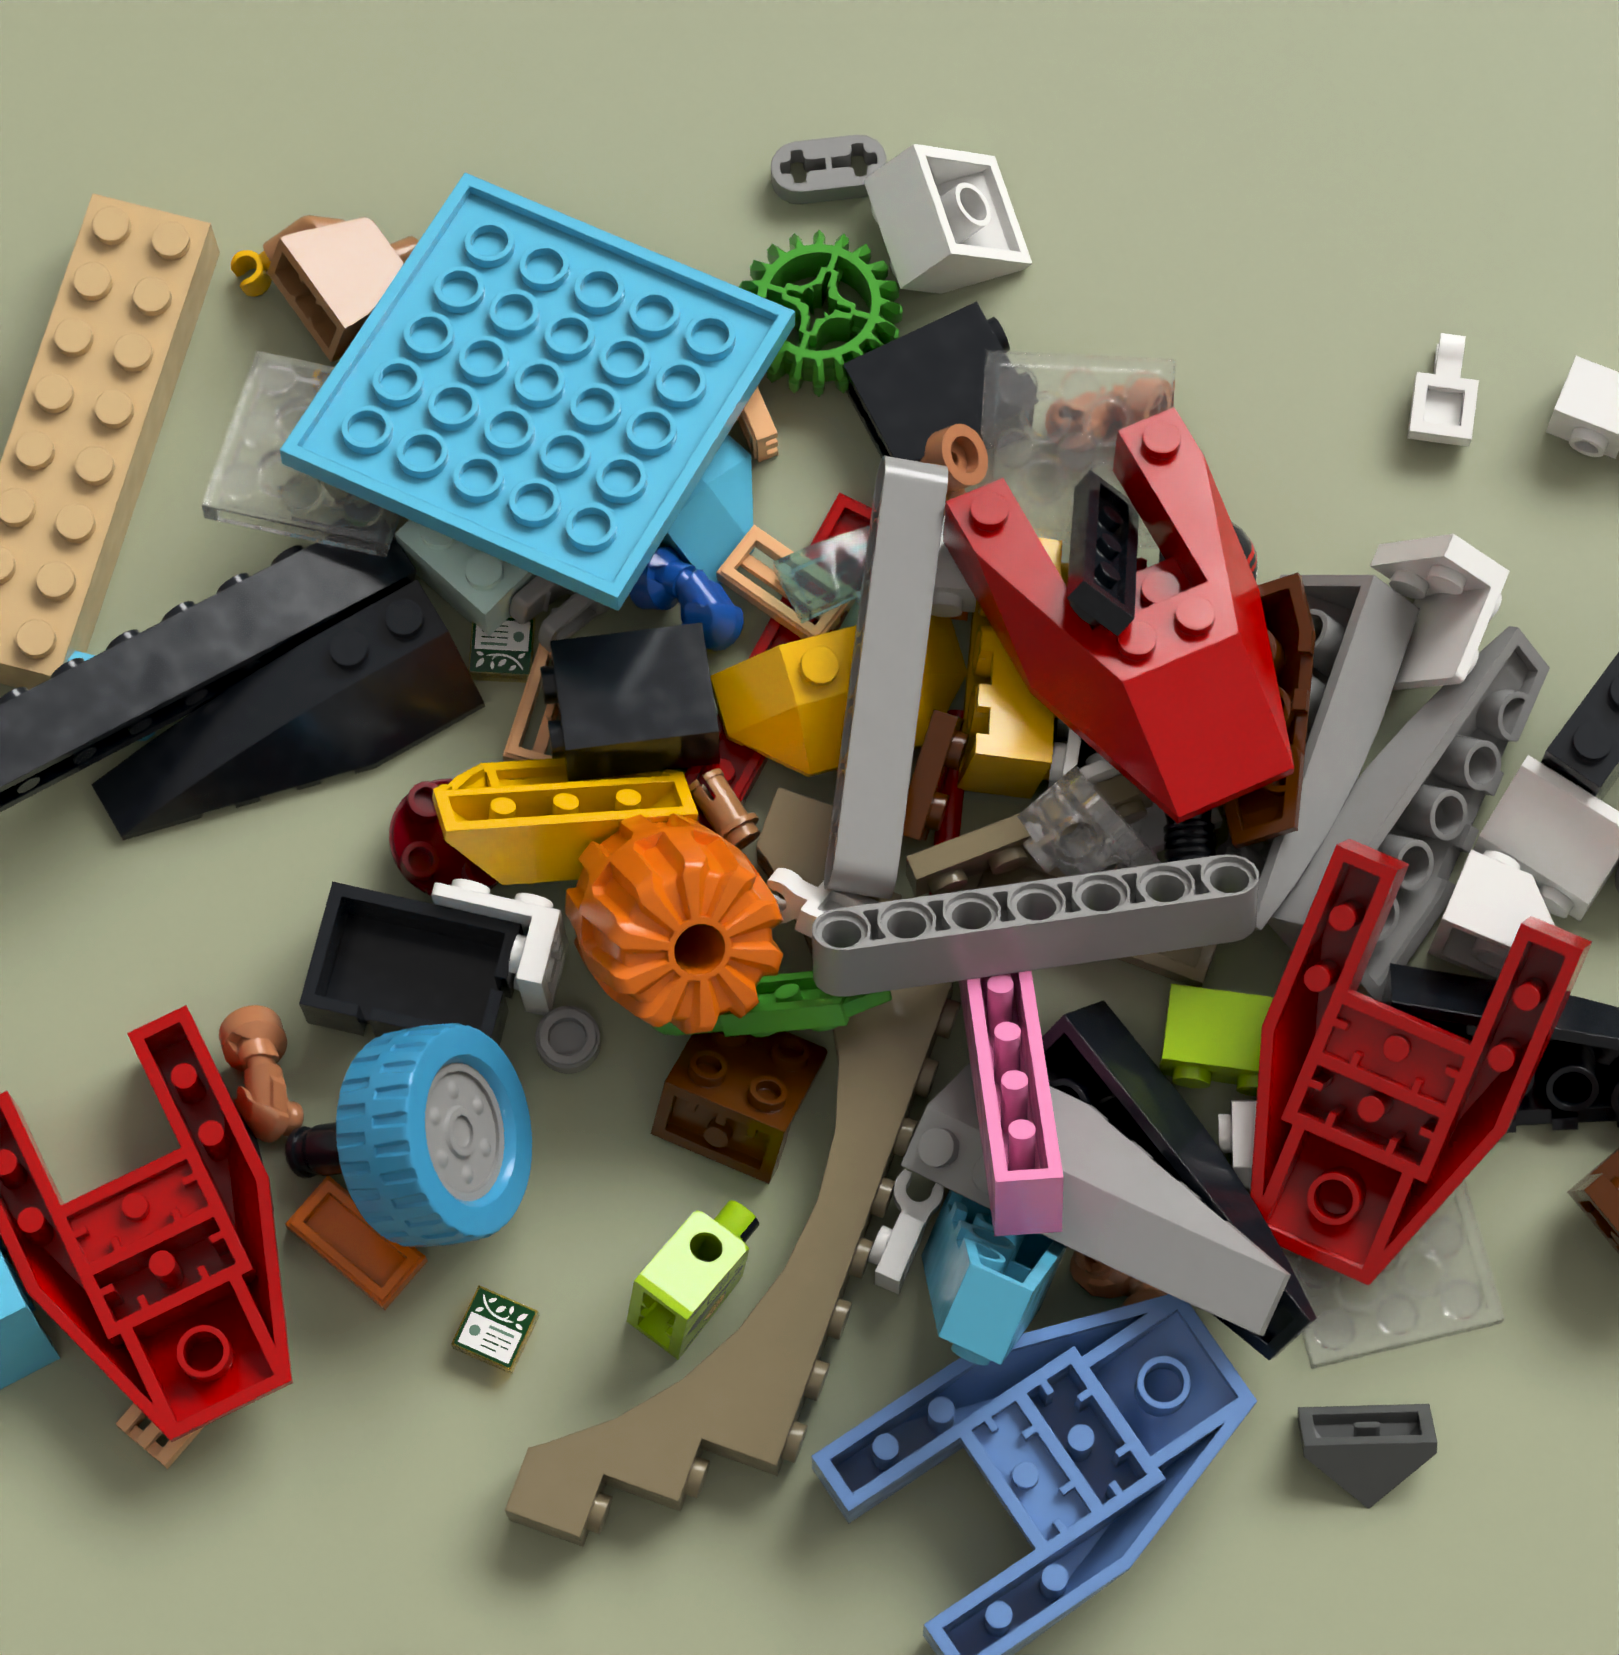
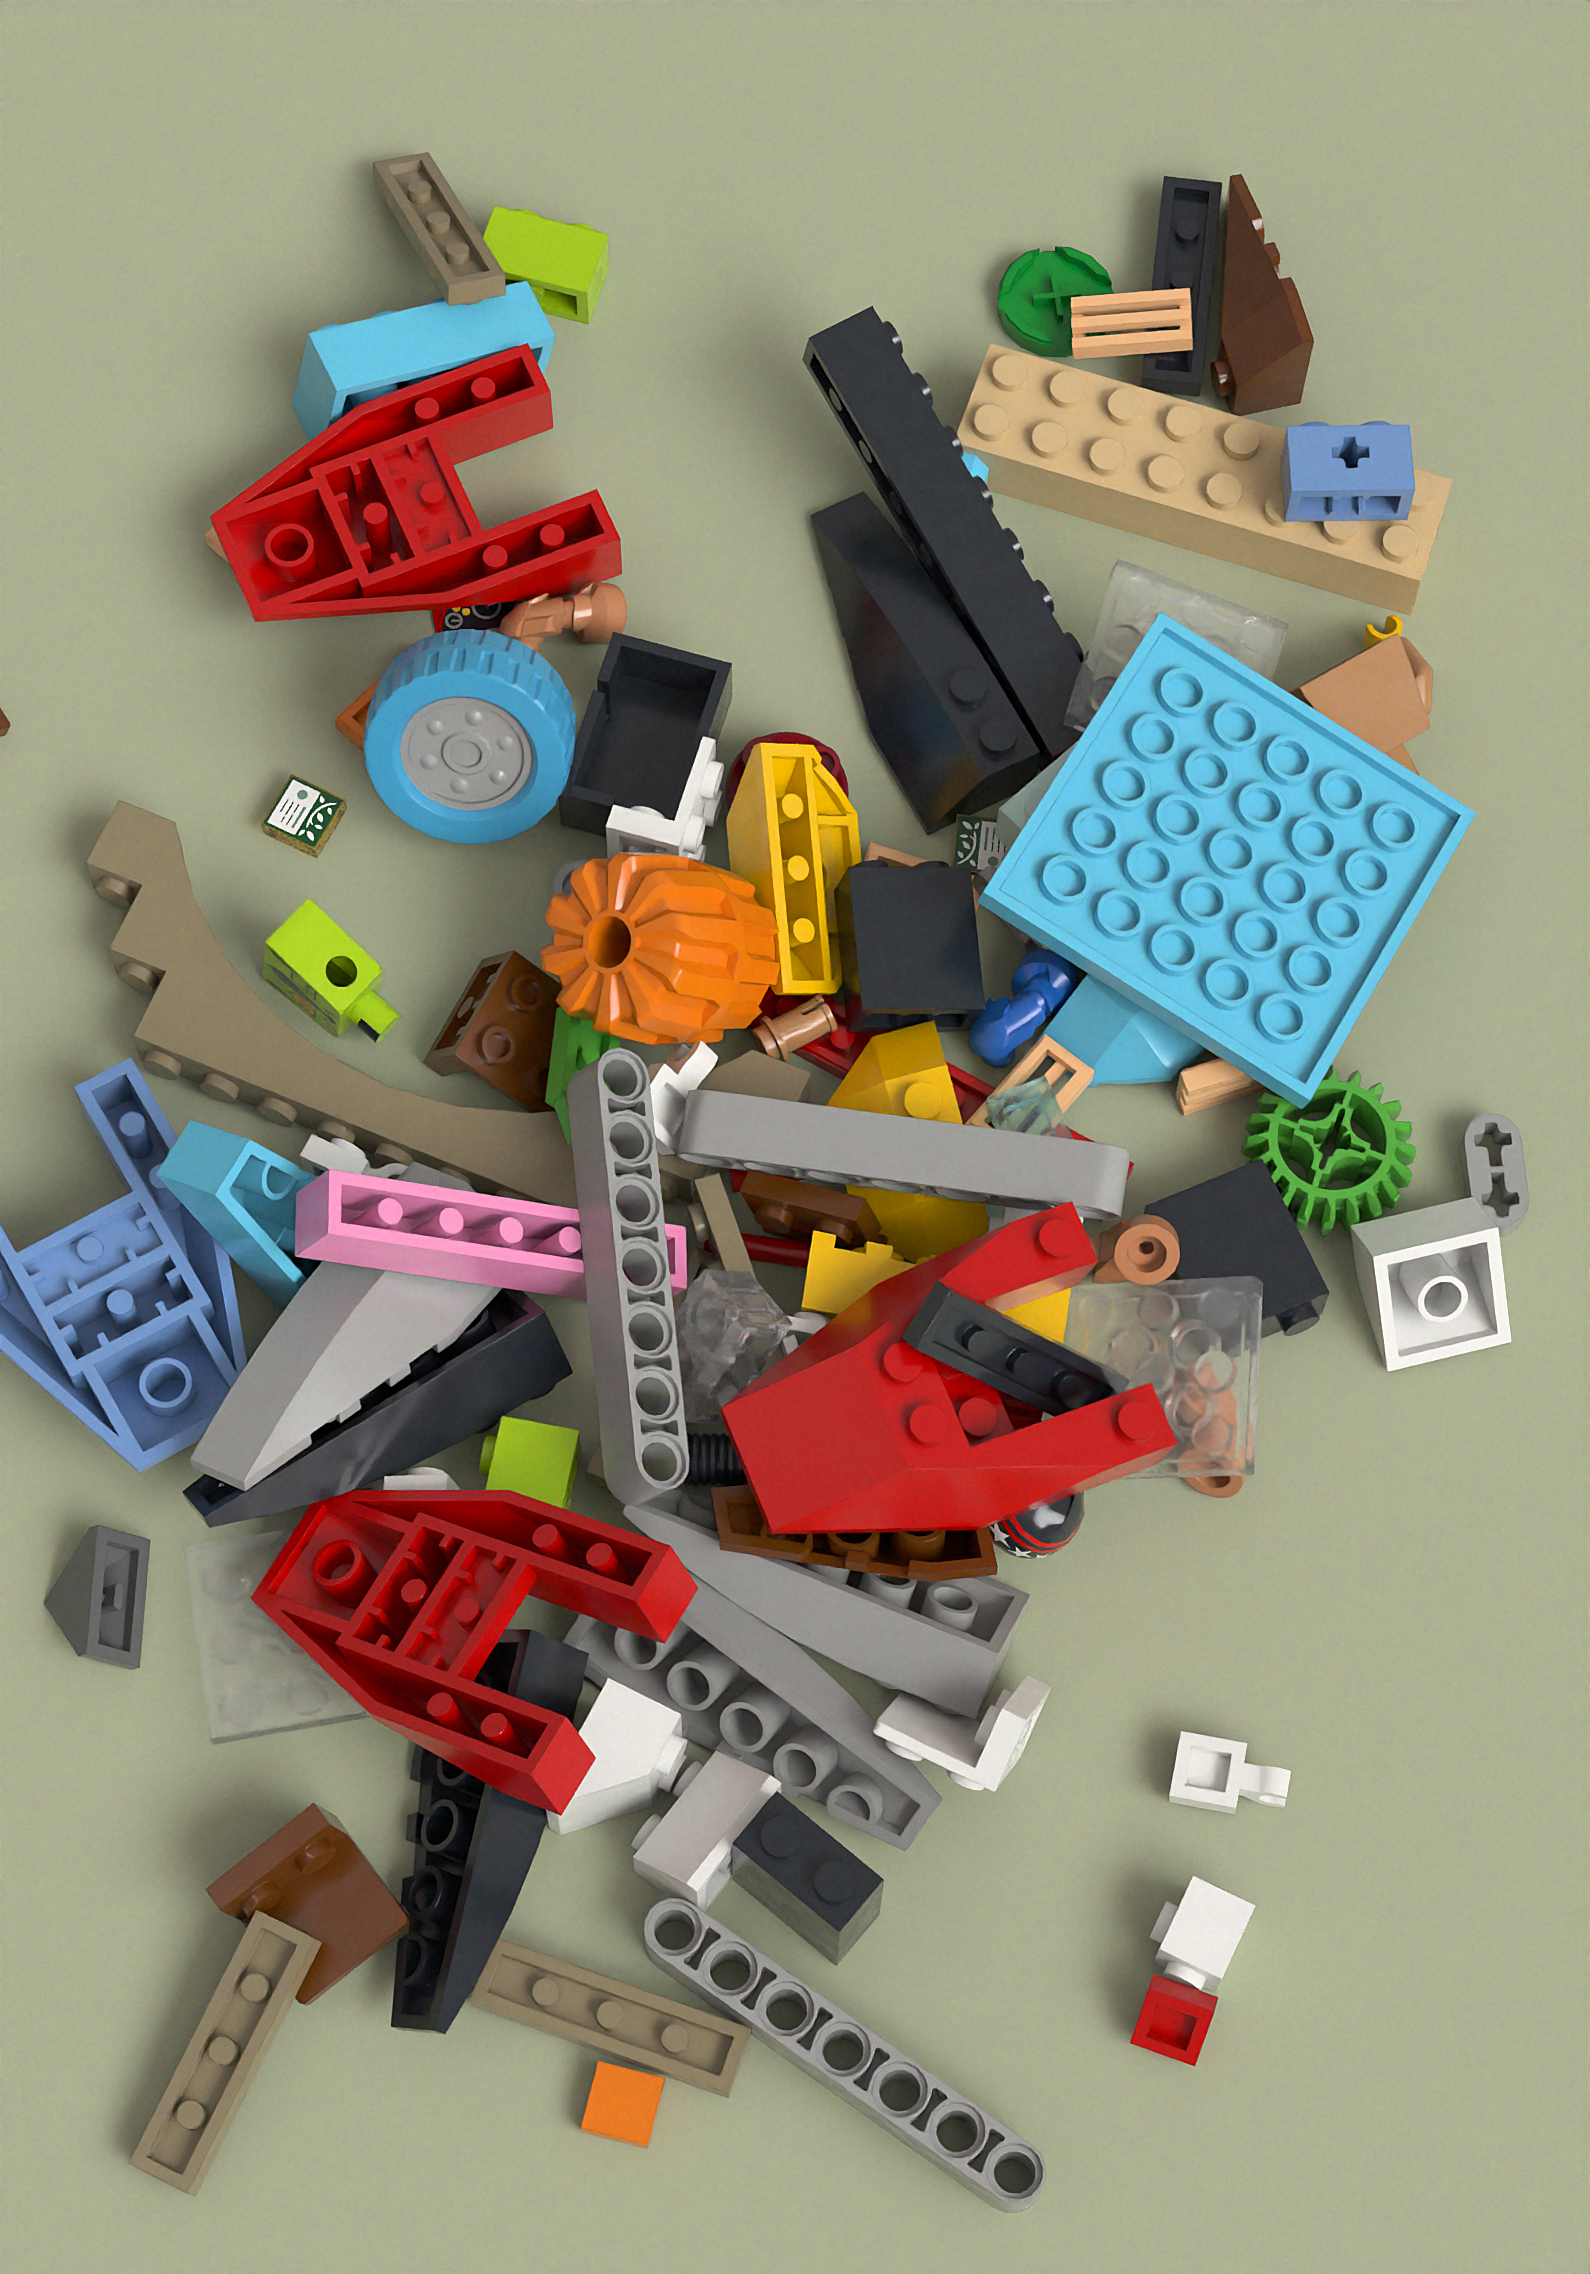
camera: 90 degrees right, 5 degrees down
(119, 311) = (1347, 472): none -> medium blue brick

